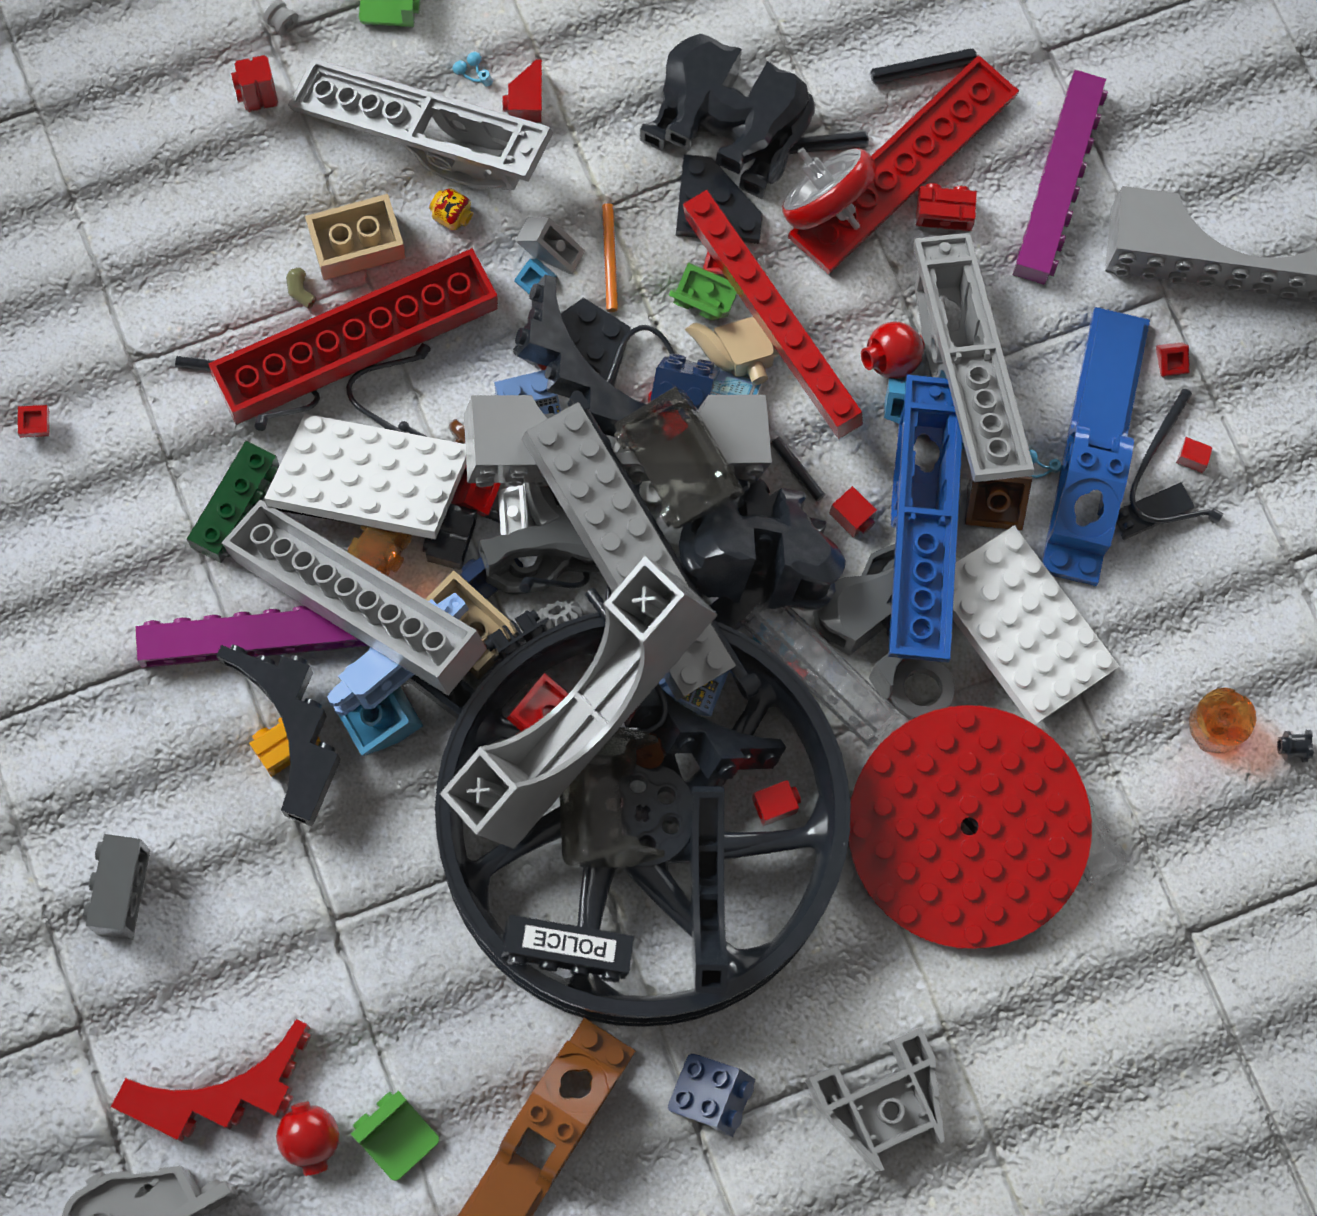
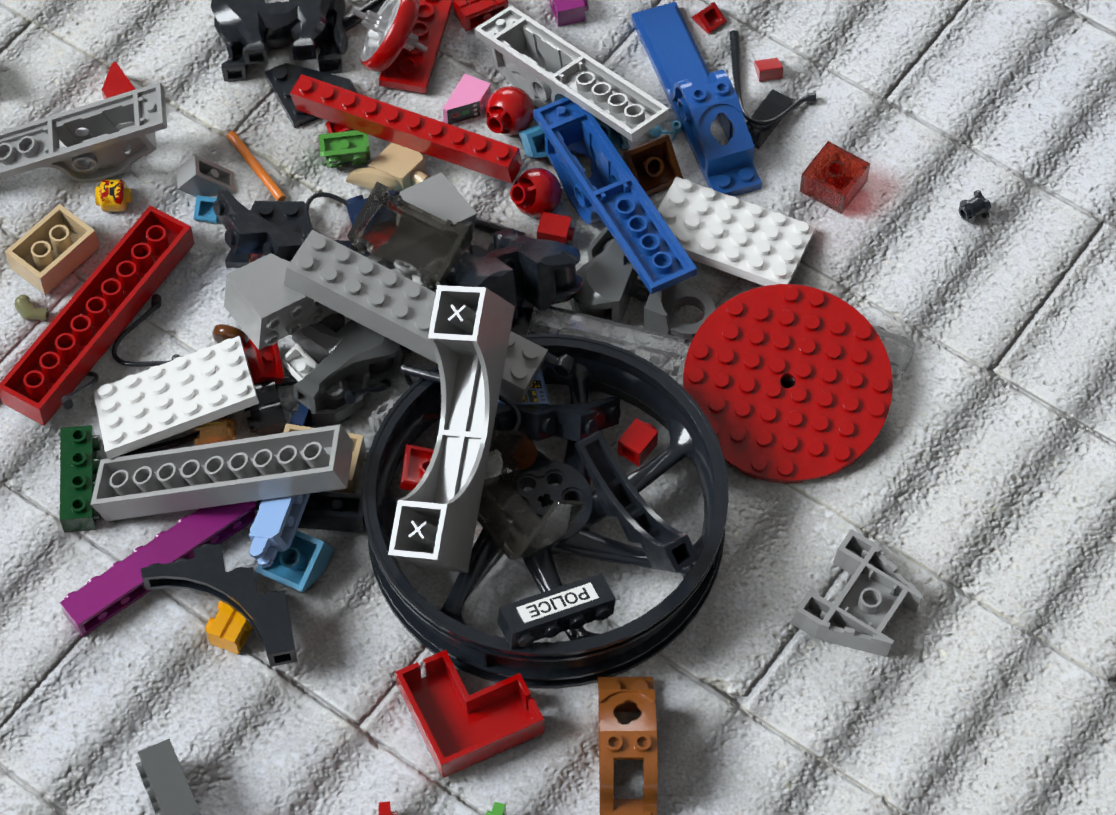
camera: 25 degrees left, 15 degrees down
(421, 990) = (463, 726): none -> red piece
(473, 59) = (62, 92): medium azure piece -> none
(528, 624) = (365, 433): black hinge -> none
(648, 492) = (404, 269): none -> light grey bush
(712, 1093) = (730, 671): dark blue bracket -> none
(860, 460) = (536, 192): none -> red brick
(862, 309) = (467, 100): none -> bright pink slope
(1174, 625) = (834, 177): none -> clear red brick
(1229, 706) = (912, 218): clear orange brick -> none

